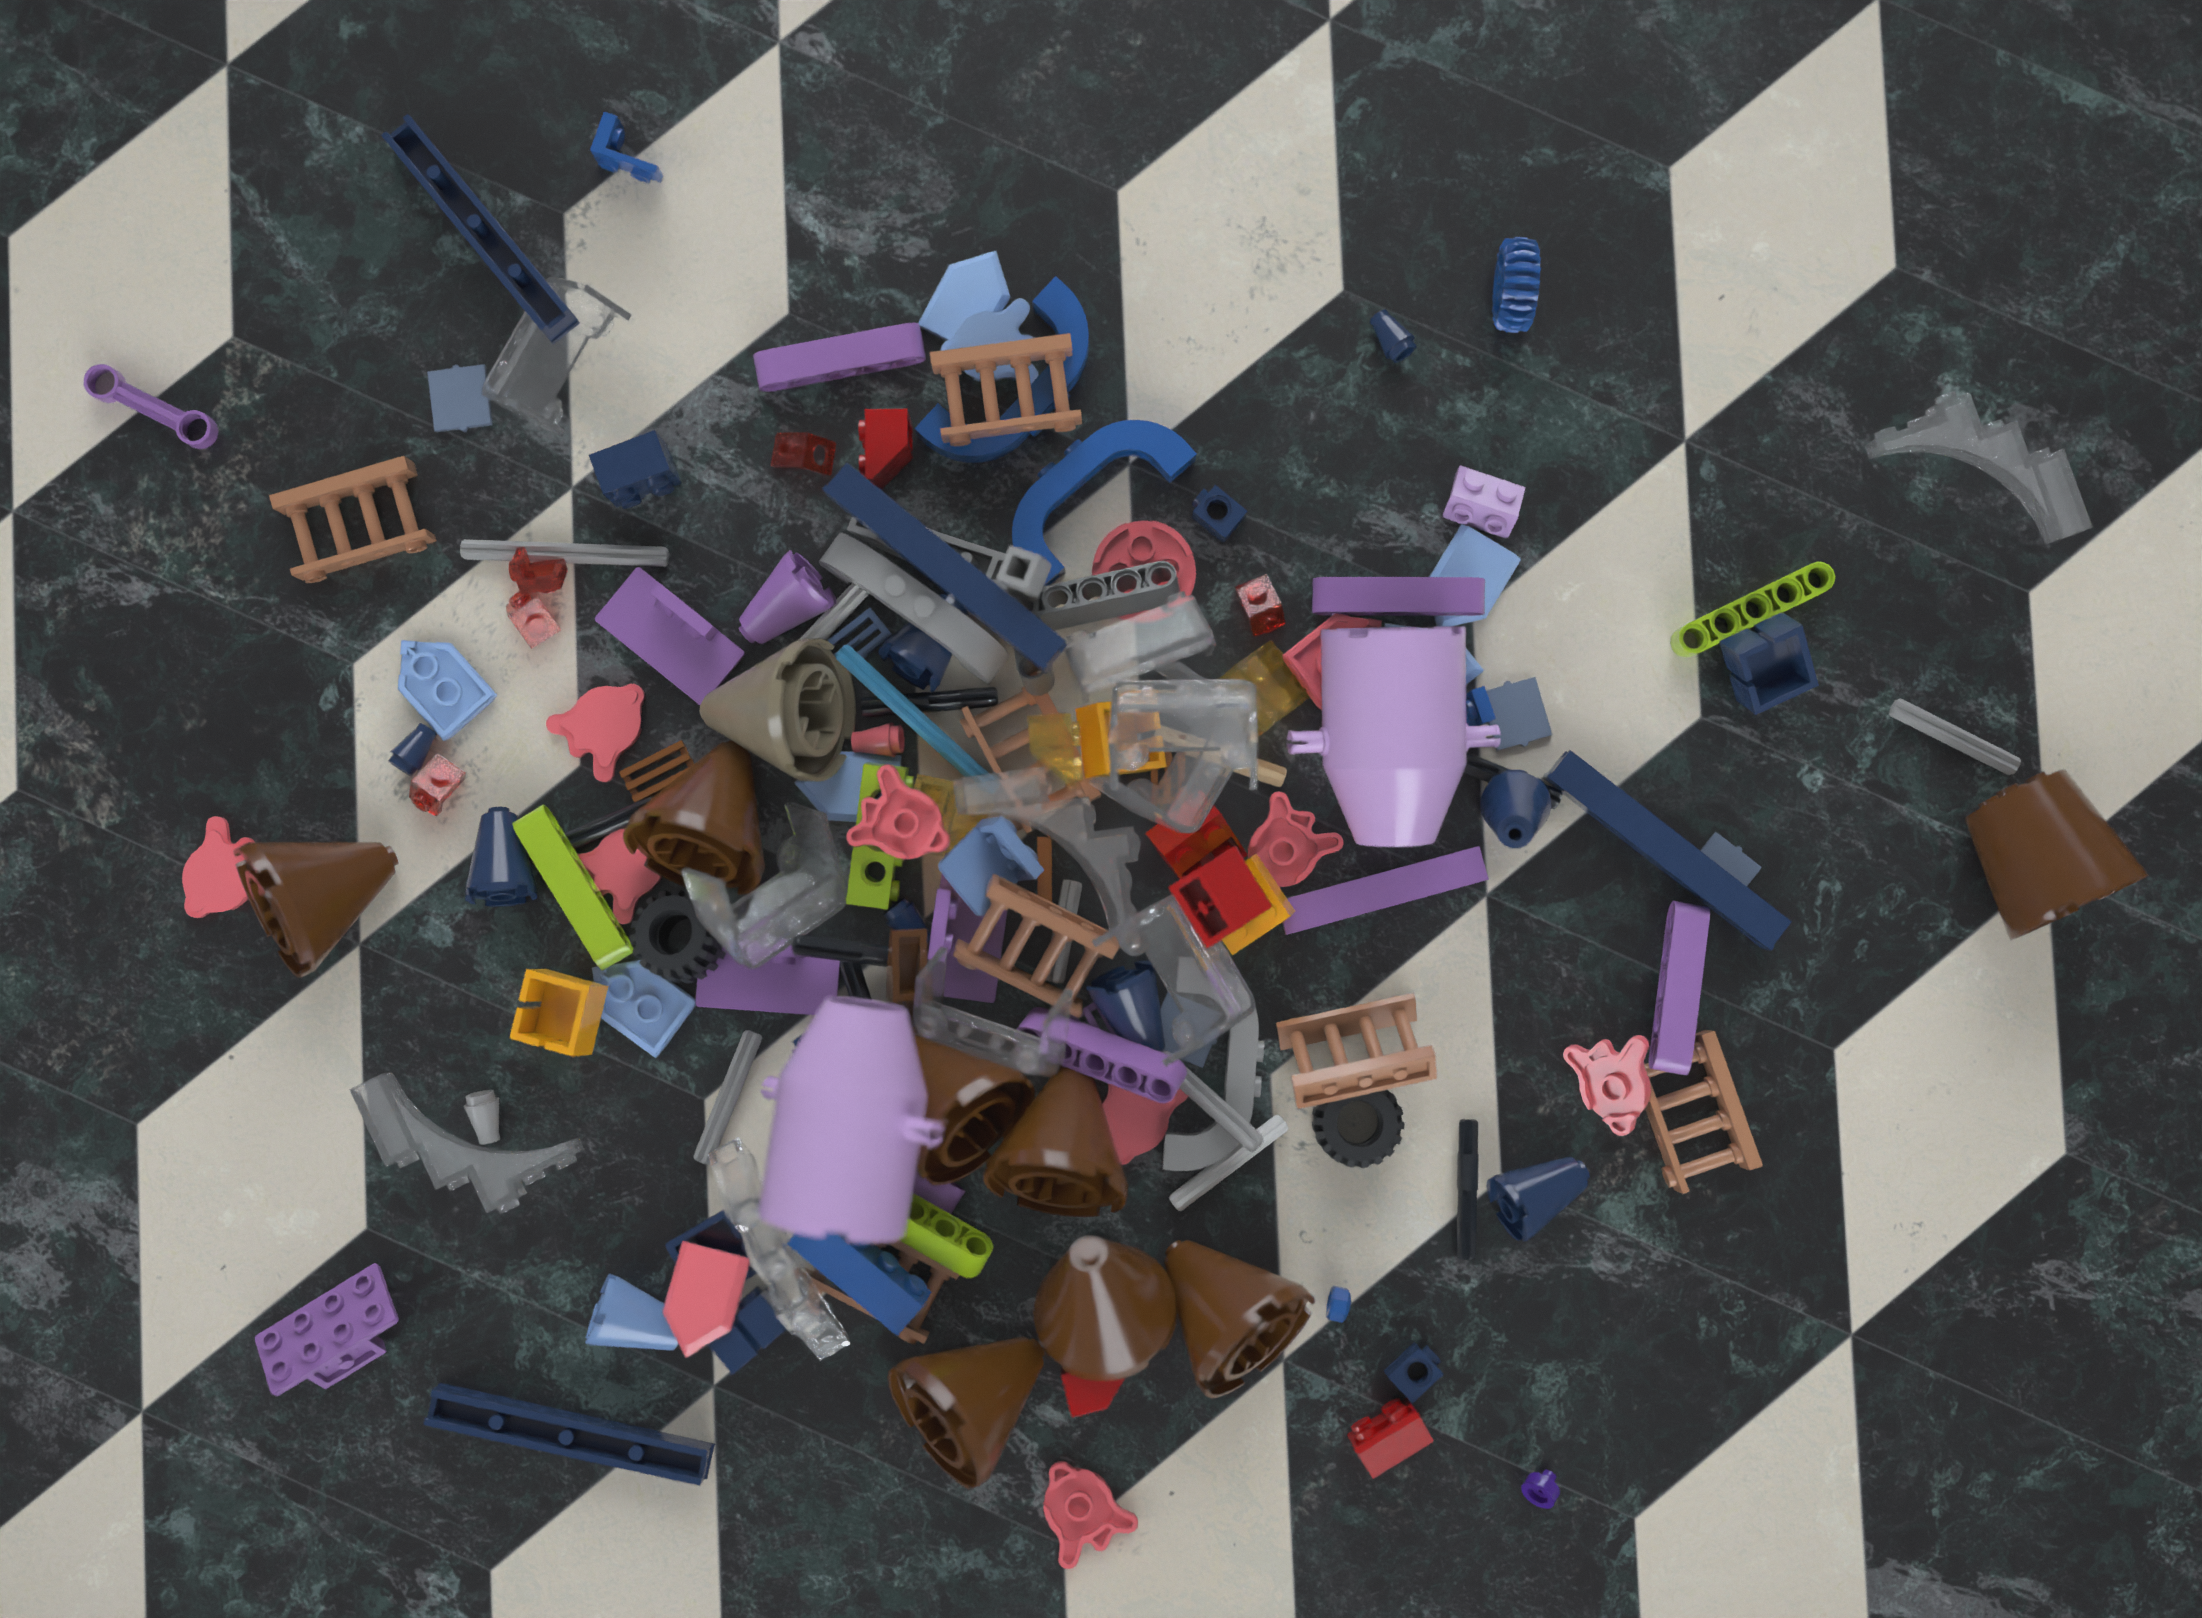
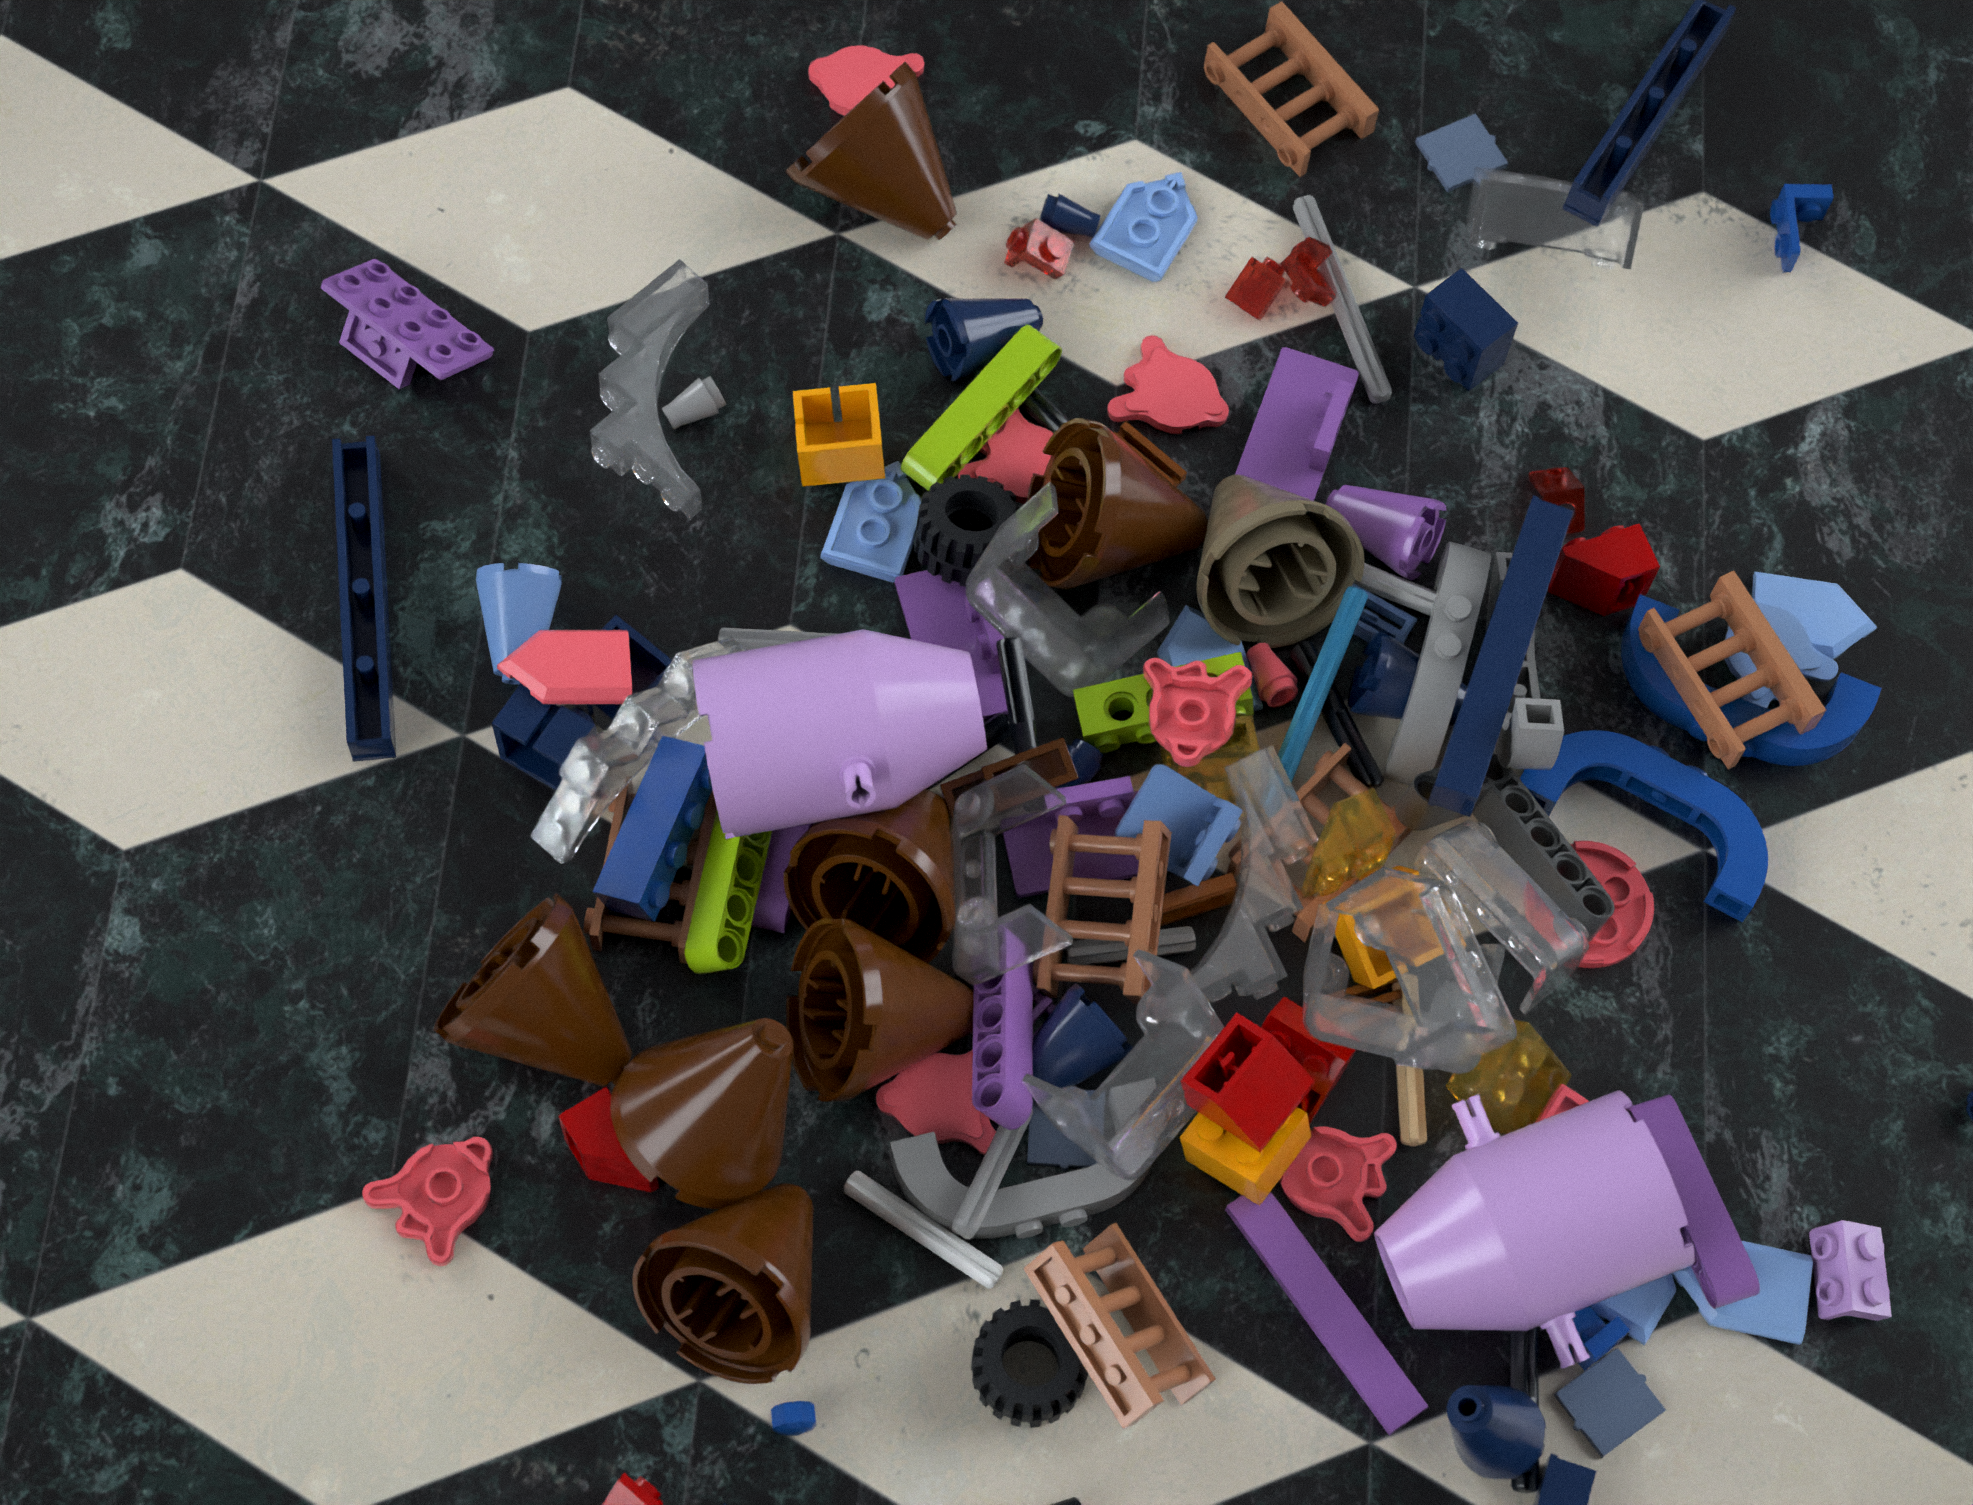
camera: 70 degrees right, 20 degrees down
(839, 357) = (1680, 499): medium lavender beam -> none
(1219, 528) = (1686, 976): dark blue brick -> none
(1261, 605) = (1607, 1047): clear red bracket -> none

